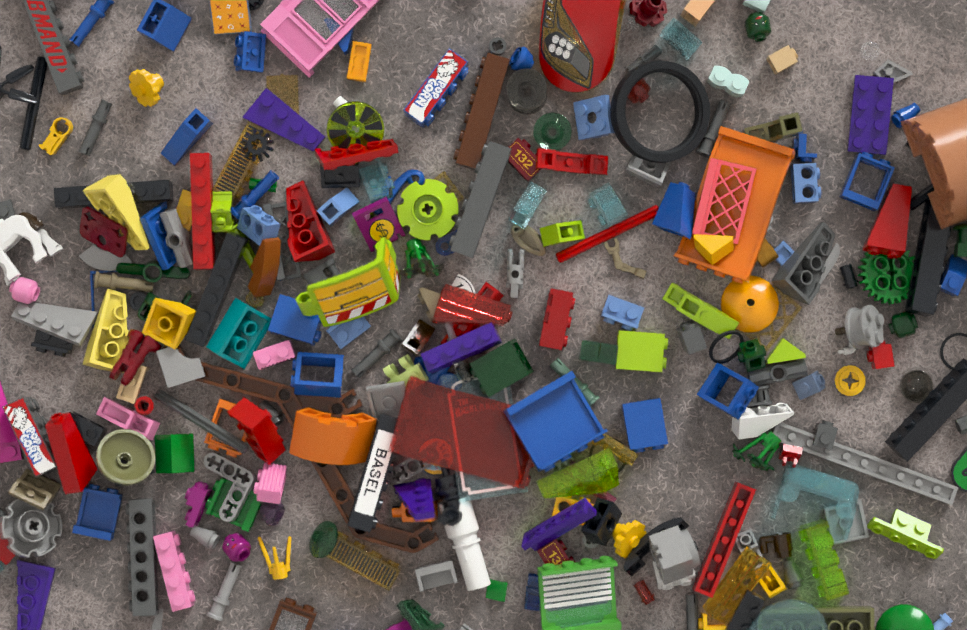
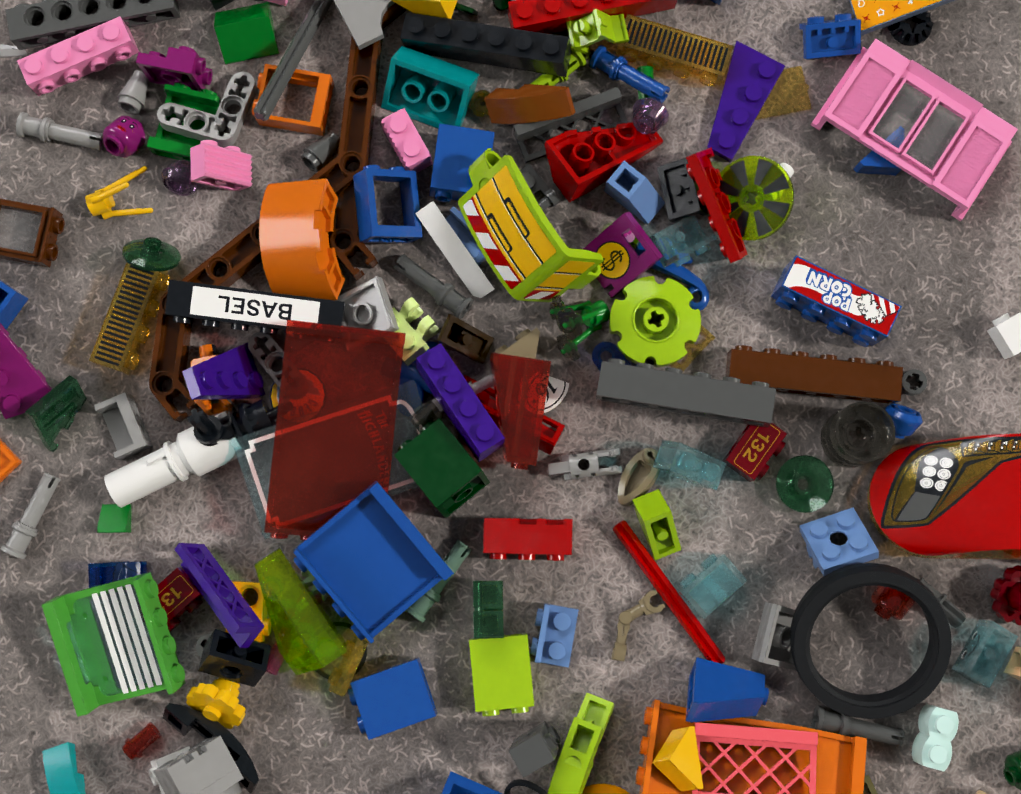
camera: 80 degrees right, 5 degrees down
(257, 224) = (589, 82): medium blue brick -> none
(260, 151) = (692, 64): black gear -> none
(260, 430) = (291, 132): red wedge -> none
(286, 187) = (649, 115): none -> clear purple cone
(356, 335) = (454, 250): none -> white sticker
(359, 61) = (849, 189): light orange plate -> none
(571, 162) = (763, 519): red slope -> none

